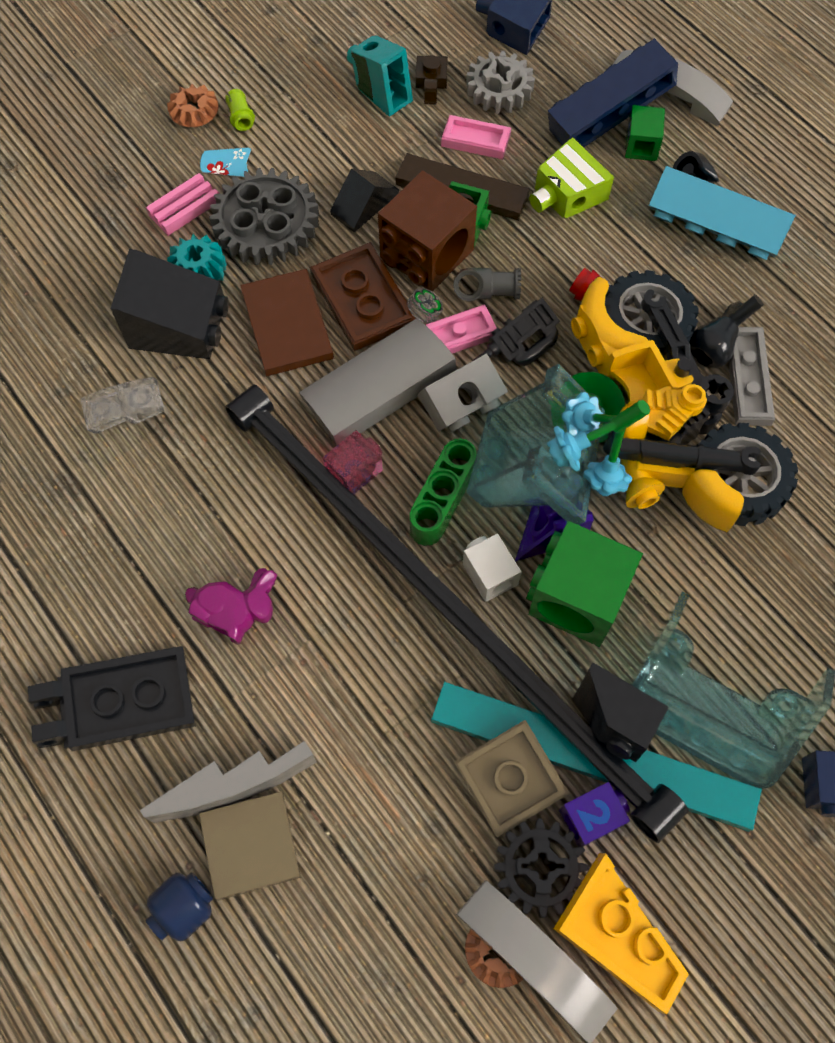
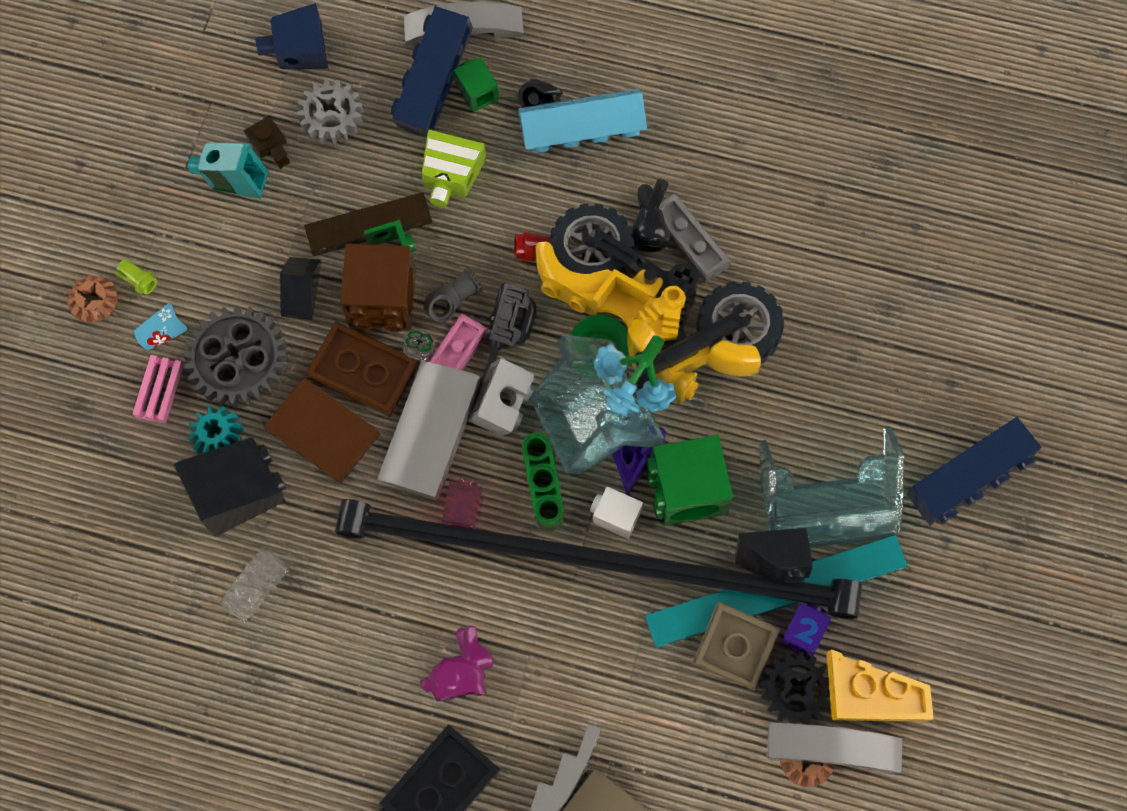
camera: 35 degrees left, 5 degrees up
(476, 137) = (345, 172): bright pink tile -> none

